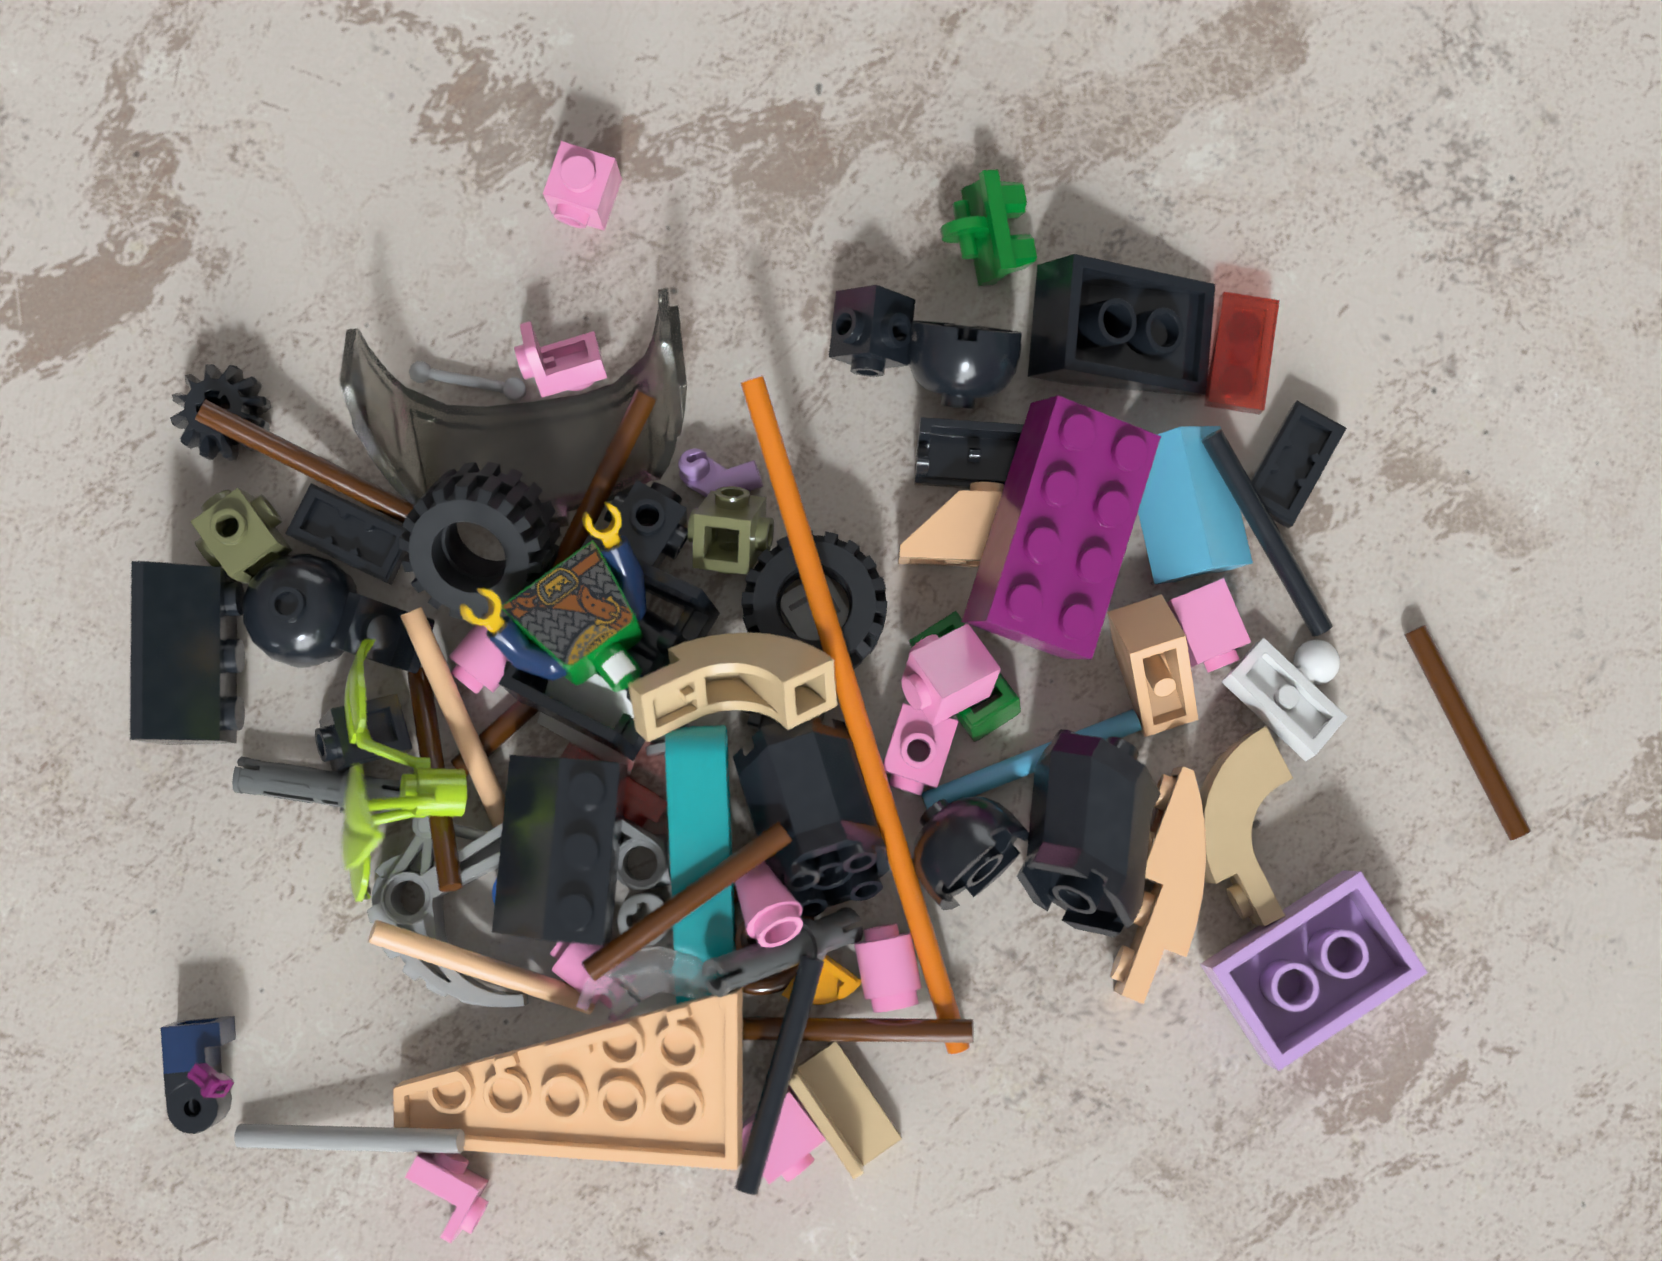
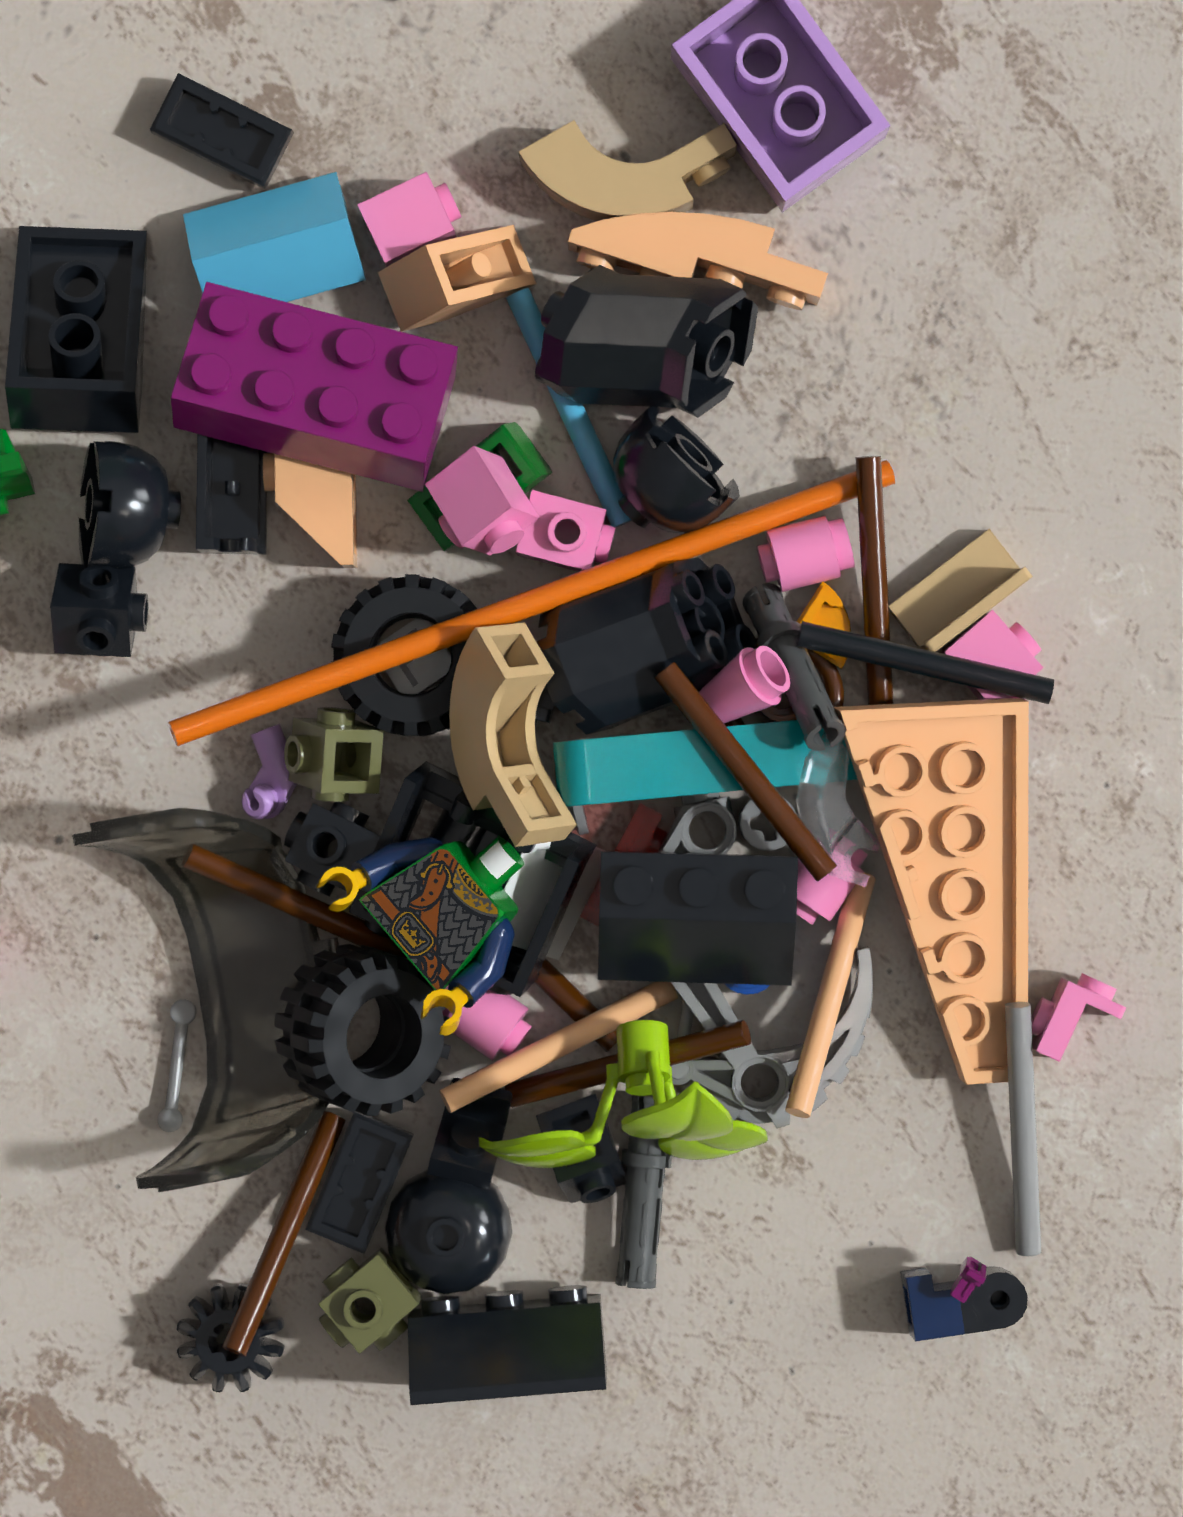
camera: 95 degrees left, 5 degrees up
(560, 365) = (153, 956): bright pink bracket -> none
(1241, 353) = (98, 193): clear red plate -> none
(1267, 532) = (301, 157): black bar -> none
(1287, 694) = (479, 129): white plate -> none

